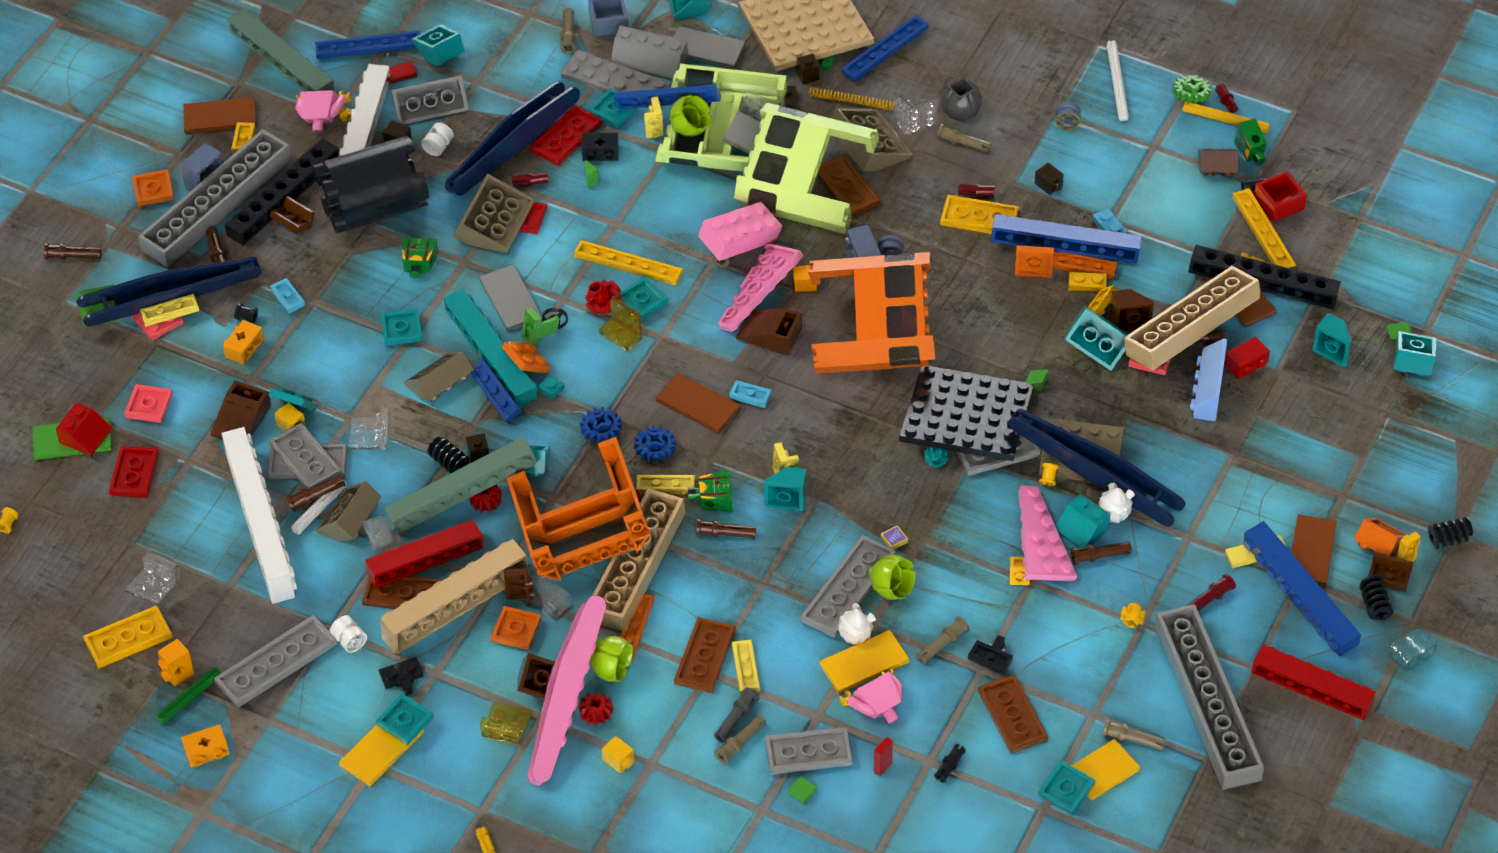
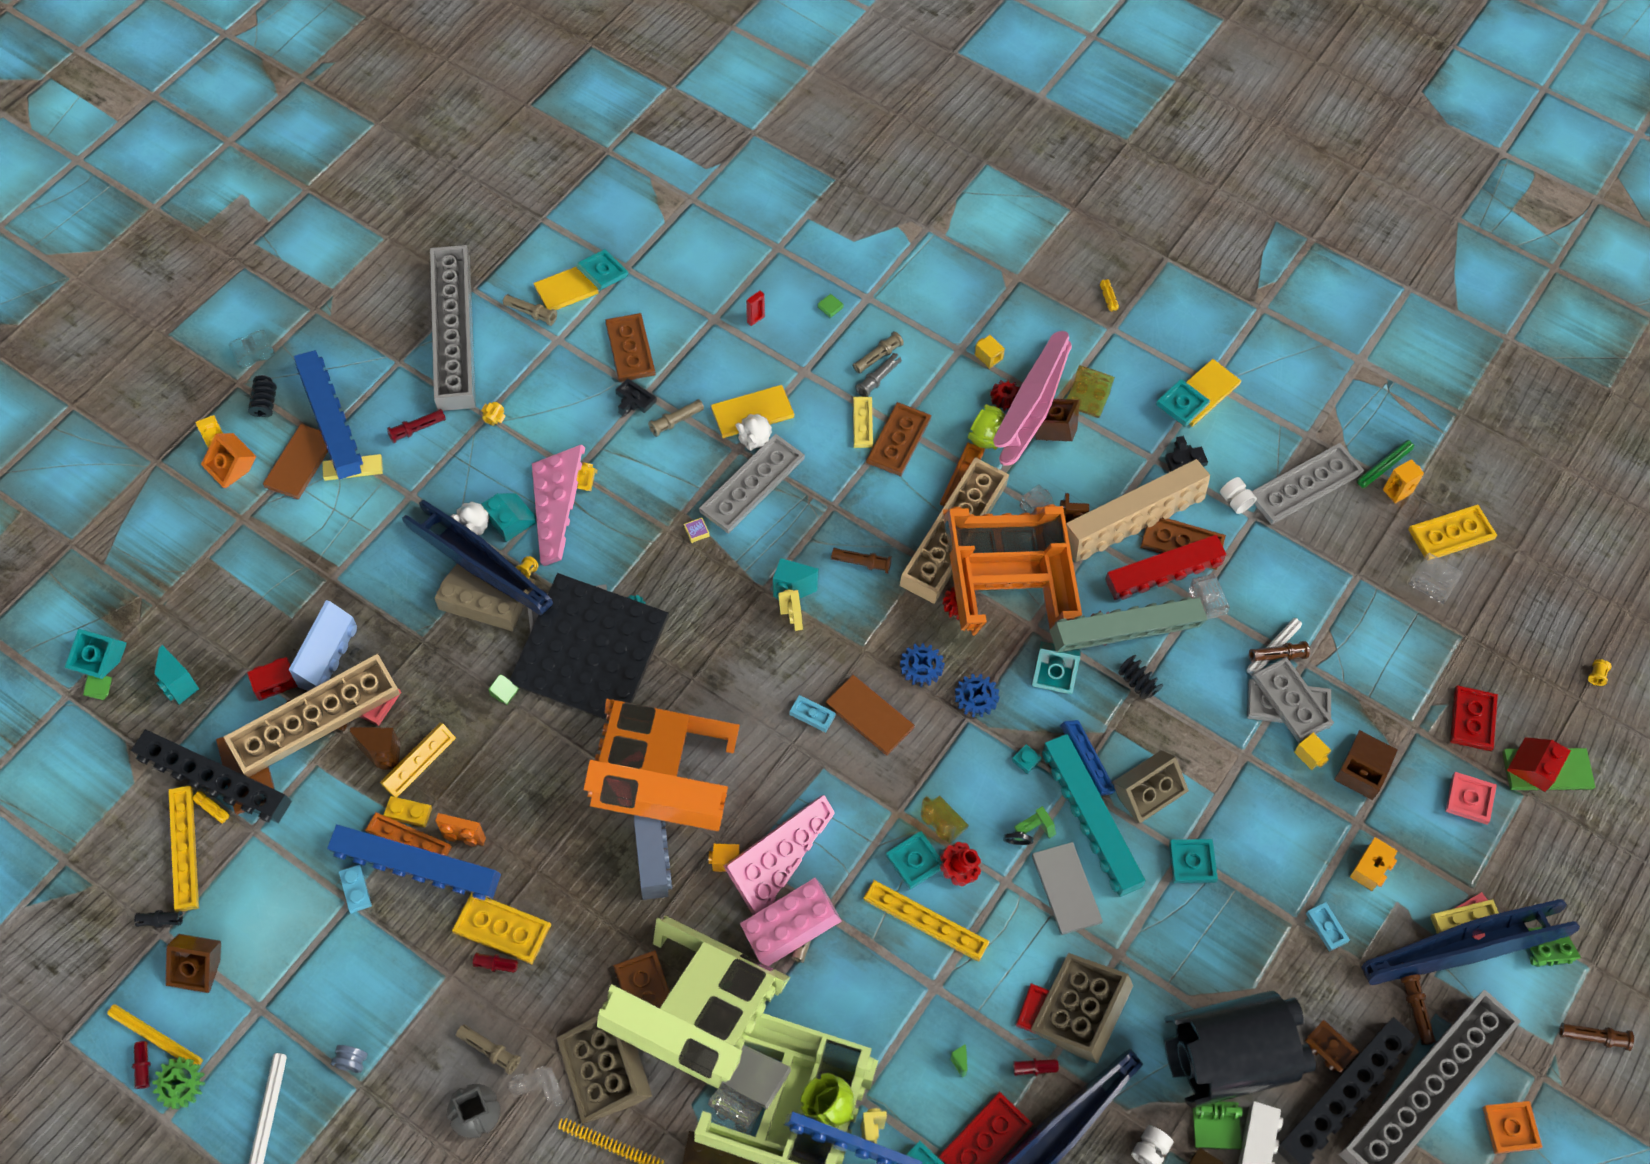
camera: 175 degrees left, 10 degrees up
(200, 165) = (1453, 1132): sand blue piece -> none
(205, 746) = (1365, 409): light orange brick -> none
(246, 313) = (1374, 907): black bush -> none
(259, 515) = (1339, 632): white brick -> none
(293, 398) = (1312, 766): teal plate -> none
(349, 512) = (1243, 628): dark tan slope -> none
(370, 432) = (1224, 725): clear bracket -> none
(419, 255) = (1175, 961): green torso -> none
(477, 447) = (1109, 682): dark brown brick -> none
(516, 628) = (1077, 482): orange plate -> none
(526, 357) = (1053, 787): orange plate -> none
(600, 147) = (932, 1107): black brick -> none
(665, 483) = (915, 622): light yellow tile -> none
(713, 492) = (868, 600): green torso -> none
(772, 329) = (776, 789): reddish brown slope -> none
(808, 750) = (819, 334): light grey plate -> none
(877, 697) = (748, 366): bright pink torso -> none
(890, 245) = (619, 881): sand blue wheel -> none
(892, 577) = (711, 472): lime piece -> none
(950, 763) = (697, 309): black pin -> none
(1049, 178) = (403, 963): dark brown brick -> none
(1092, 553) = (511, 483): reddish brown pin -> none
(1097, 337) = (421, 715): teal slope -> none
(1250, 141) = (143, 977): green torso -> none
(1280, 196) = (144, 885): red piece -> none
(1313, 682) = (354, 332): red brick -> none
(1393, 570) = (238, 422): reddish brown bracket -> none
(1450, 531) = (161, 453): black piece -> none

